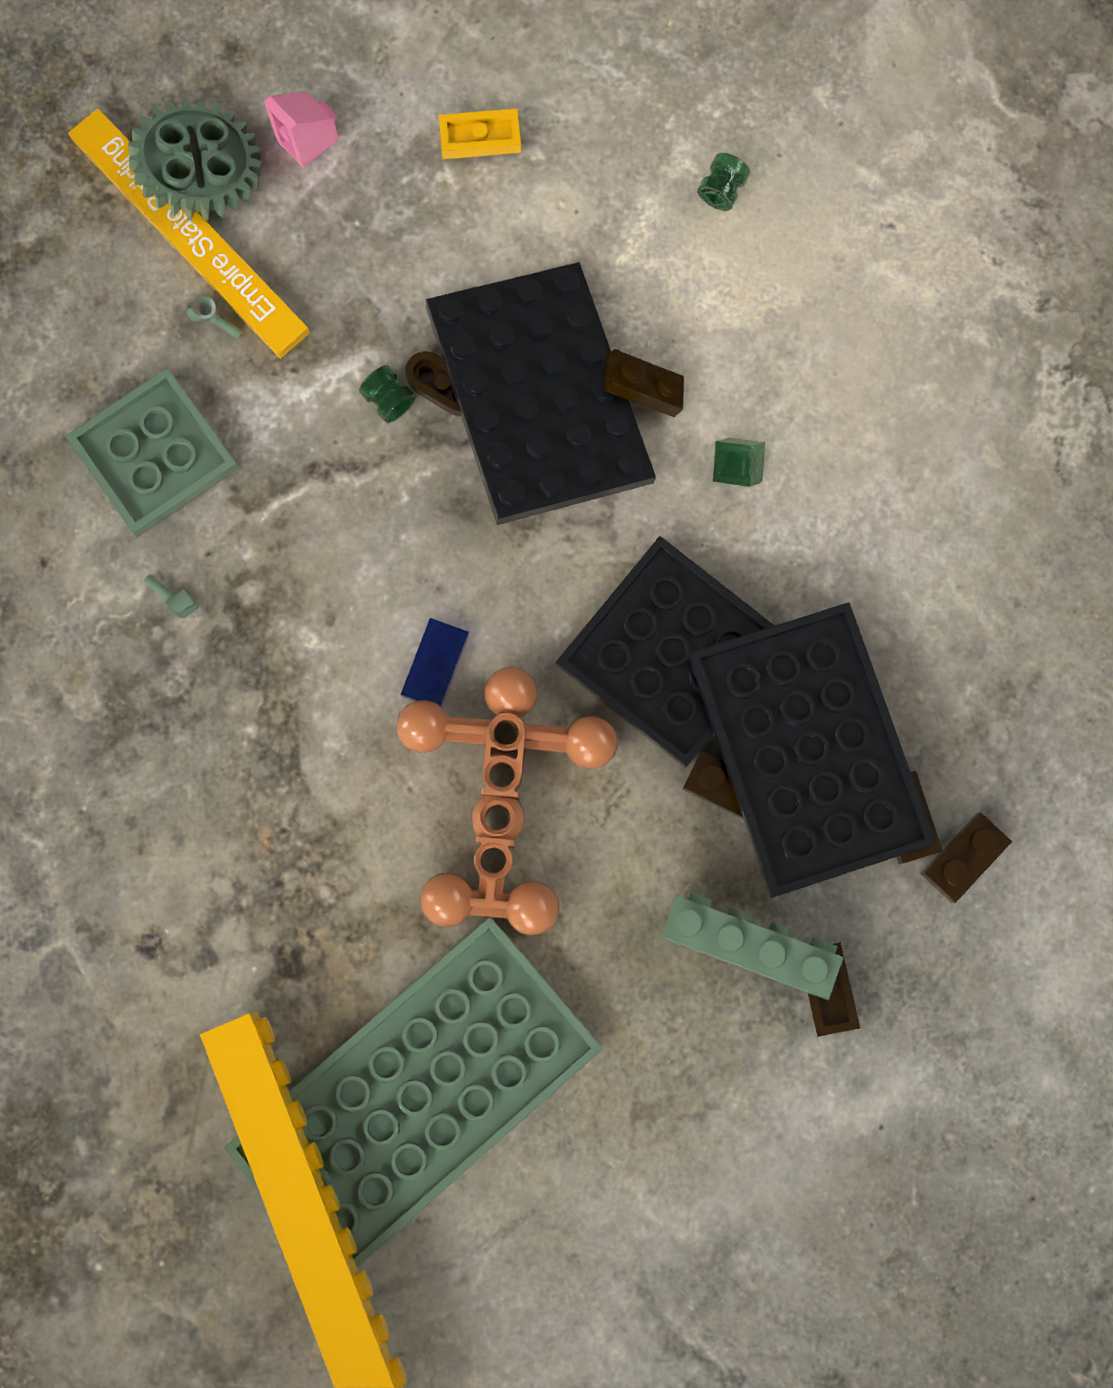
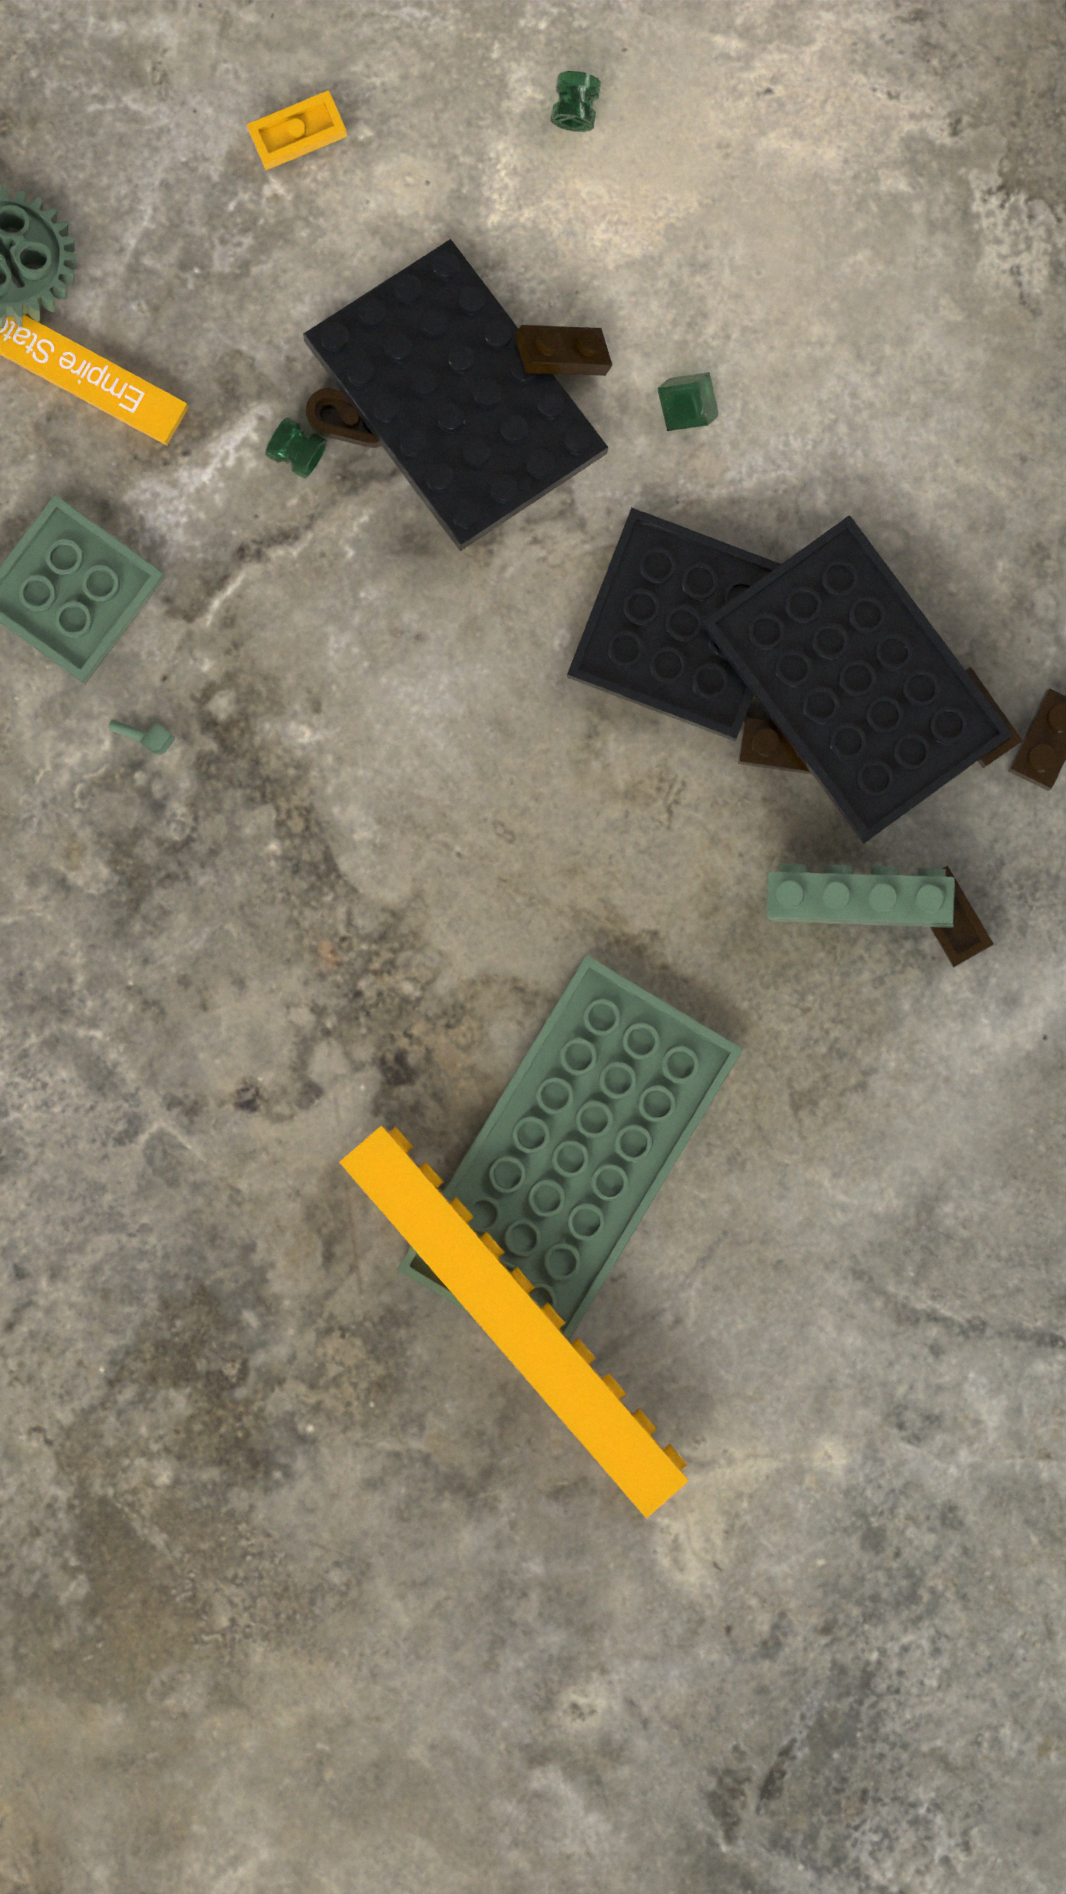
camera: 20 degrees left, 5 degrees up
(213, 316) = (77, 421): sand green hand -> none
(302, 125) = (105, 183): bright pink slope -> none
(435, 662) = (442, 717): clear blue plate -> none
(510, 695) = (532, 724): nougat piece -> none

